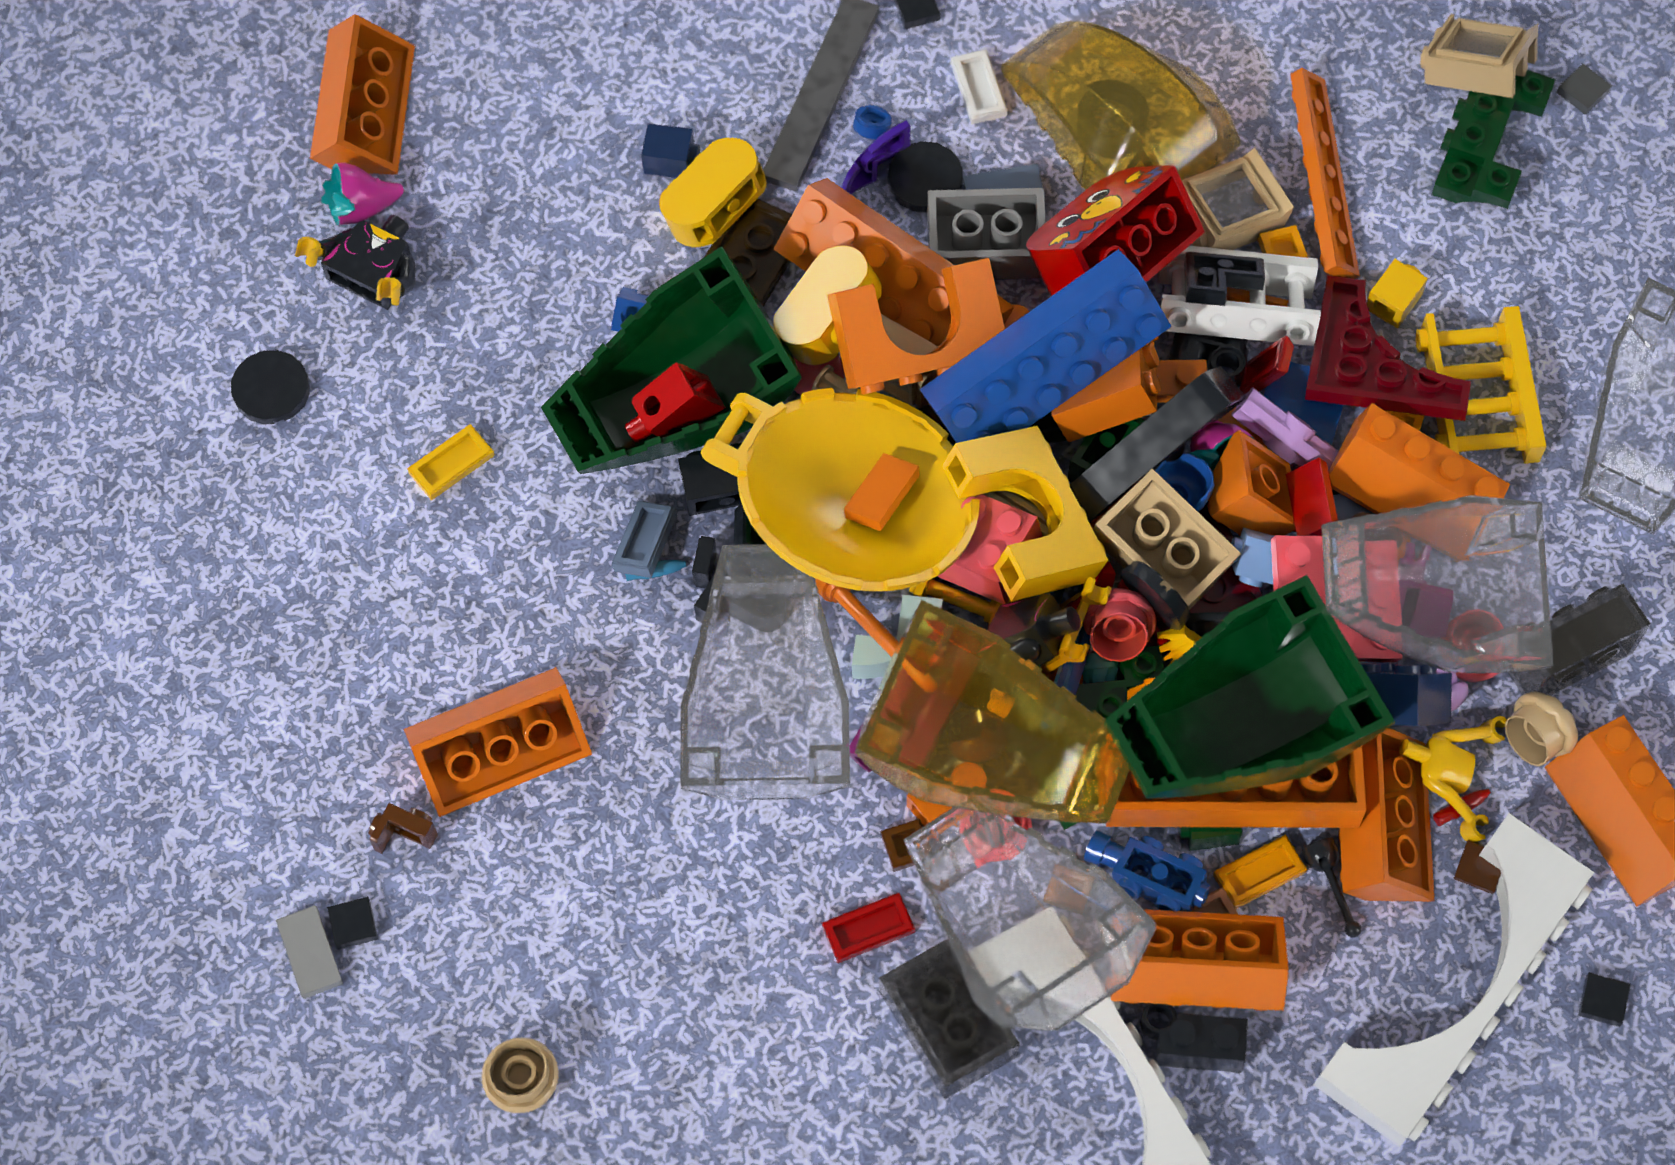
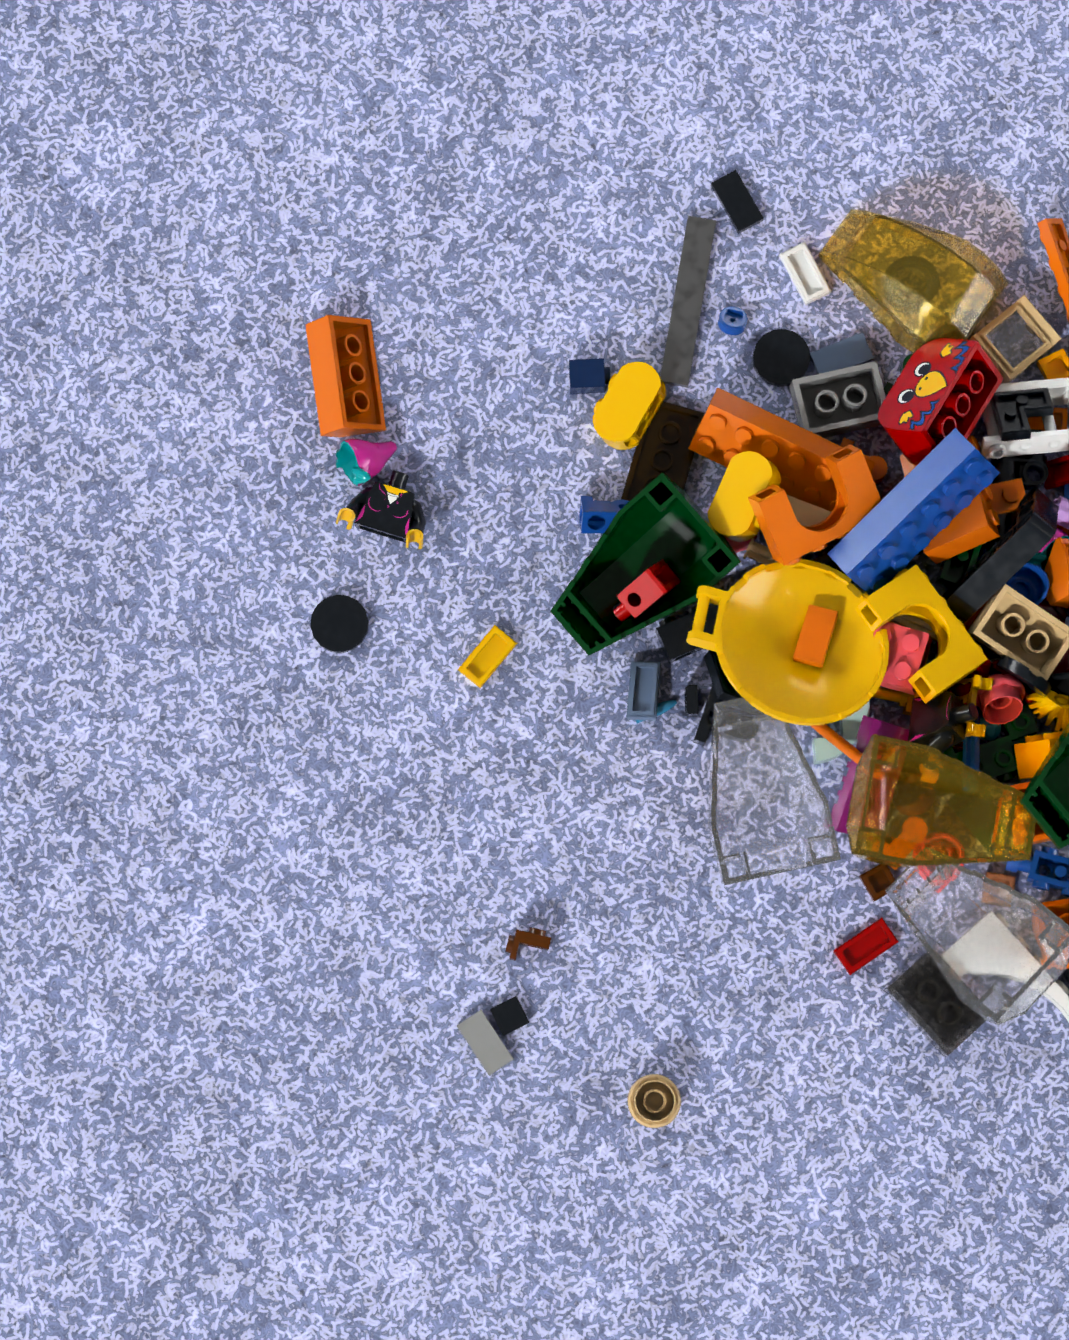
camera: 15 degrees left, 15 degrees up
(498, 741) = (577, 864): orange slope -> none
(883, 148) = (745, 349): dark purple brick -> none

